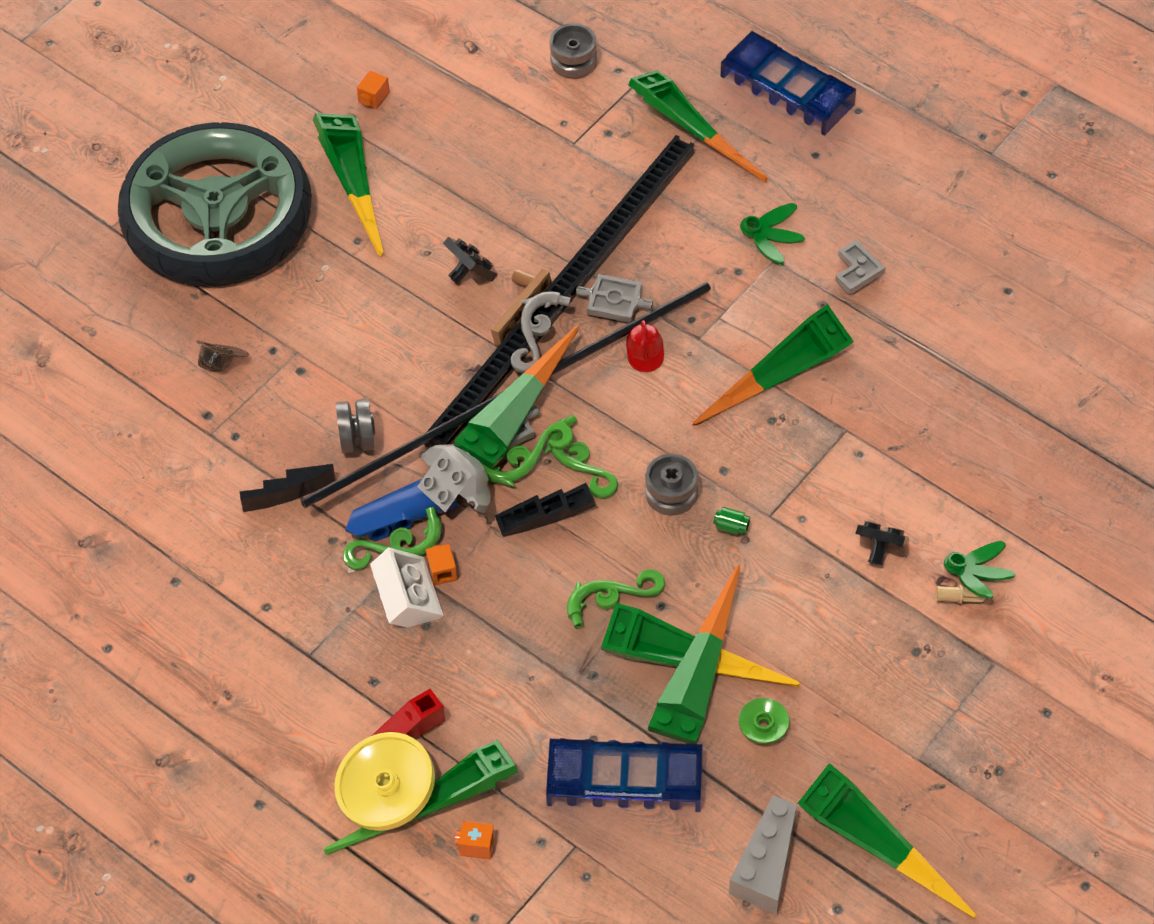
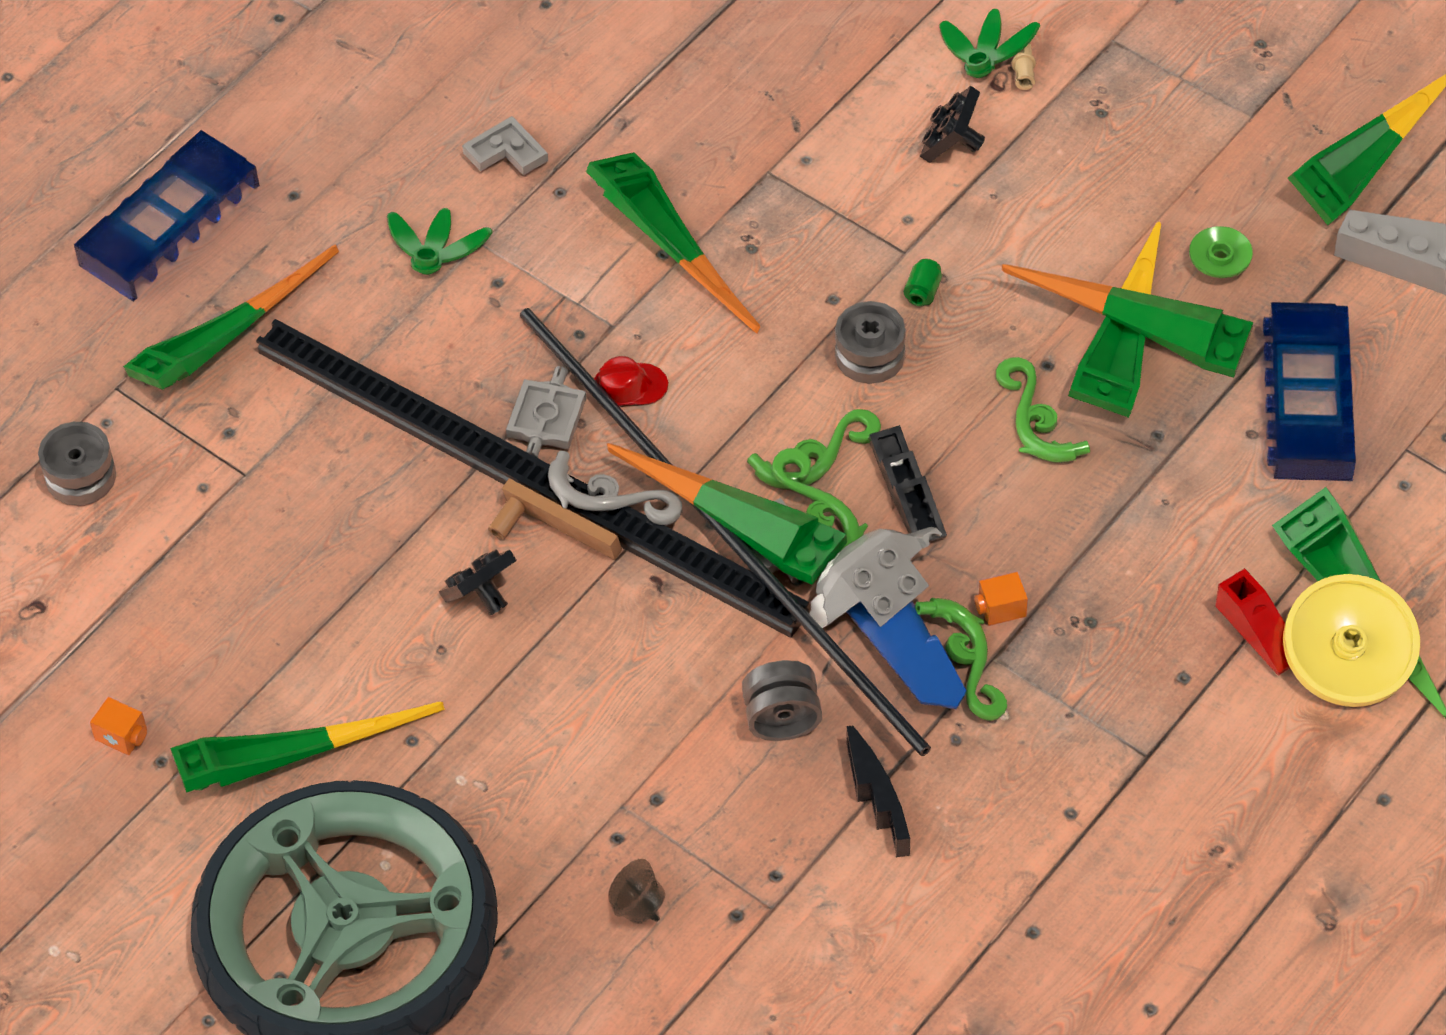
camera: 90 degrees left, 0 degrees up
(406, 588) = (1045, 639): white slope -> none
(475, 840) = (1419, 543): orange brick -> none

